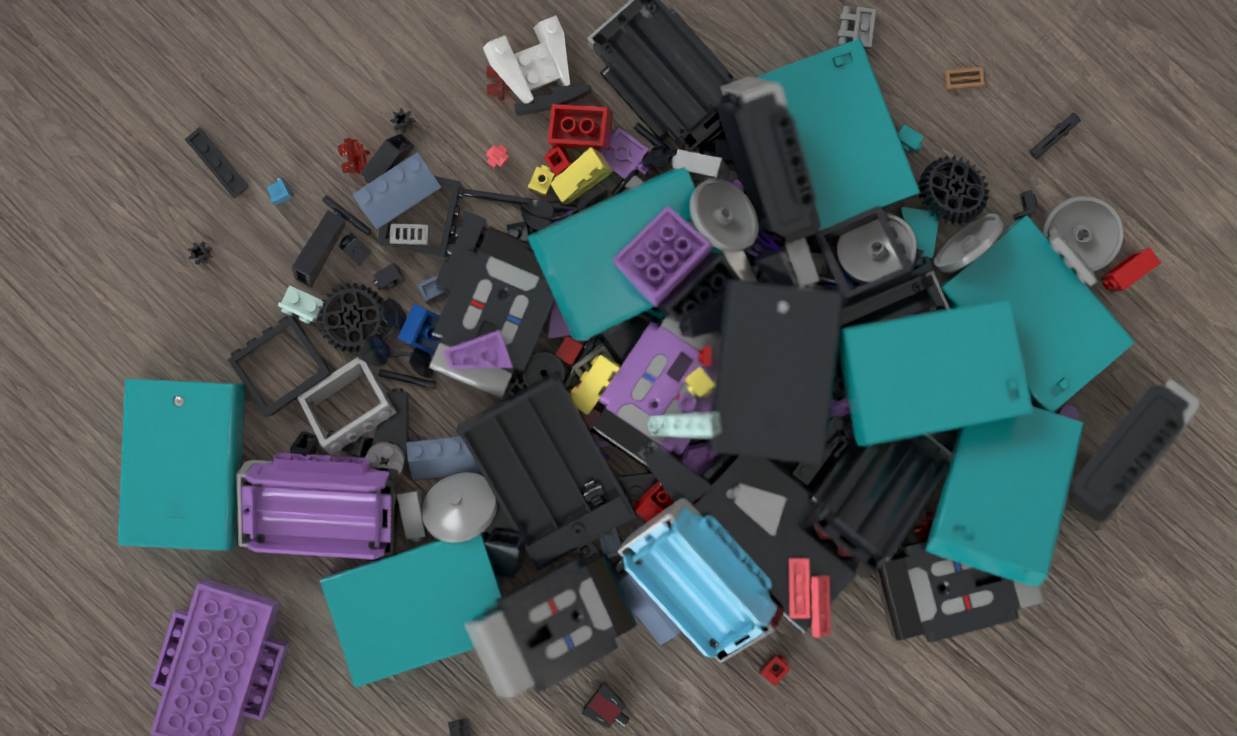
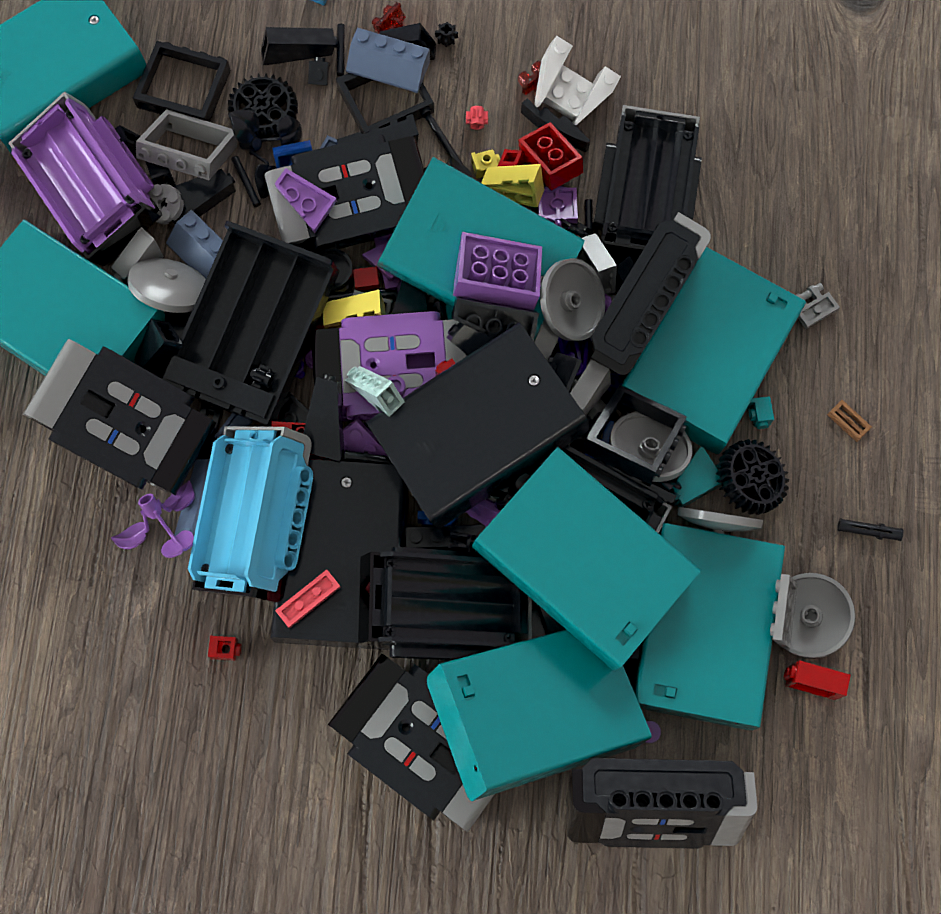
camera: 45 degrees right, 15 degrees down
(301, 304) = (243, 64): light aqua bracket -> none
(388, 277) = (316, 109): black brick -> none
(425, 234) = (368, 106): light grey slope -> none
(606, 707) = (84, 531): torso -> none
(639, 674) = (152, 508): none -> medium lavender plant
(699, 383) = (418, 376): light yellow brick -> none
(760, 506) = (354, 510): light grey slope -> none
(821, 605) = (306, 629): coral plate -> none
(1028, 202) = (798, 550): black bracket -> none

